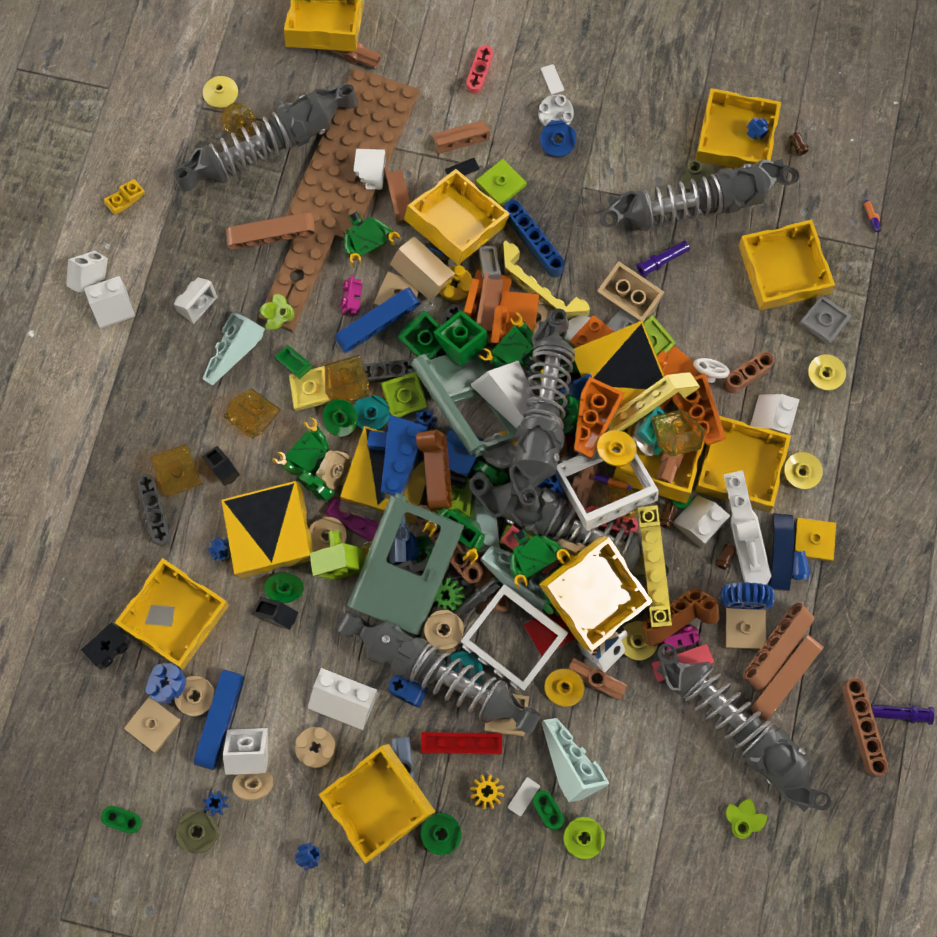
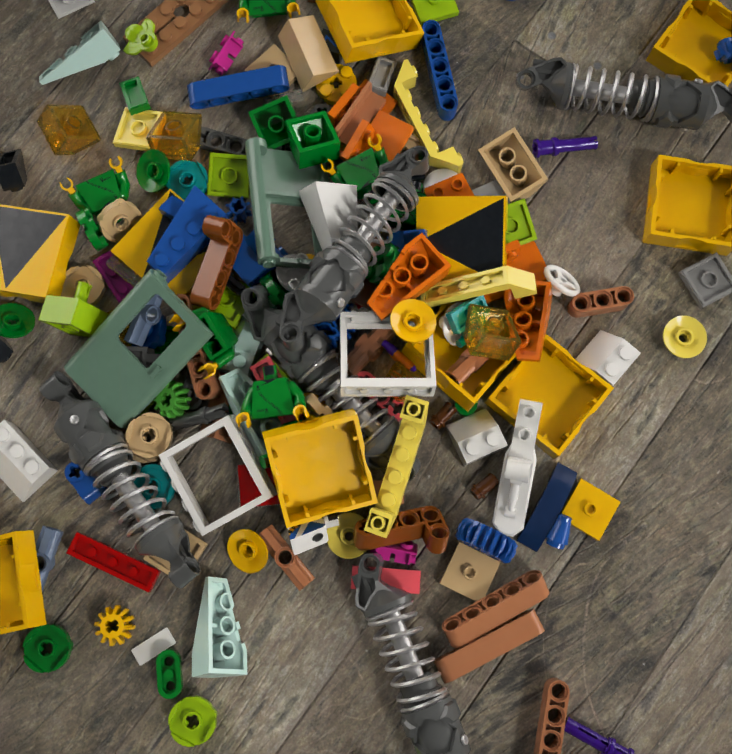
camera: 20 degrees right, 5 degrees up
(702, 170) = (643, 62): olive plate -> none
(809, 464) = (620, 426): light yellow dish -> none

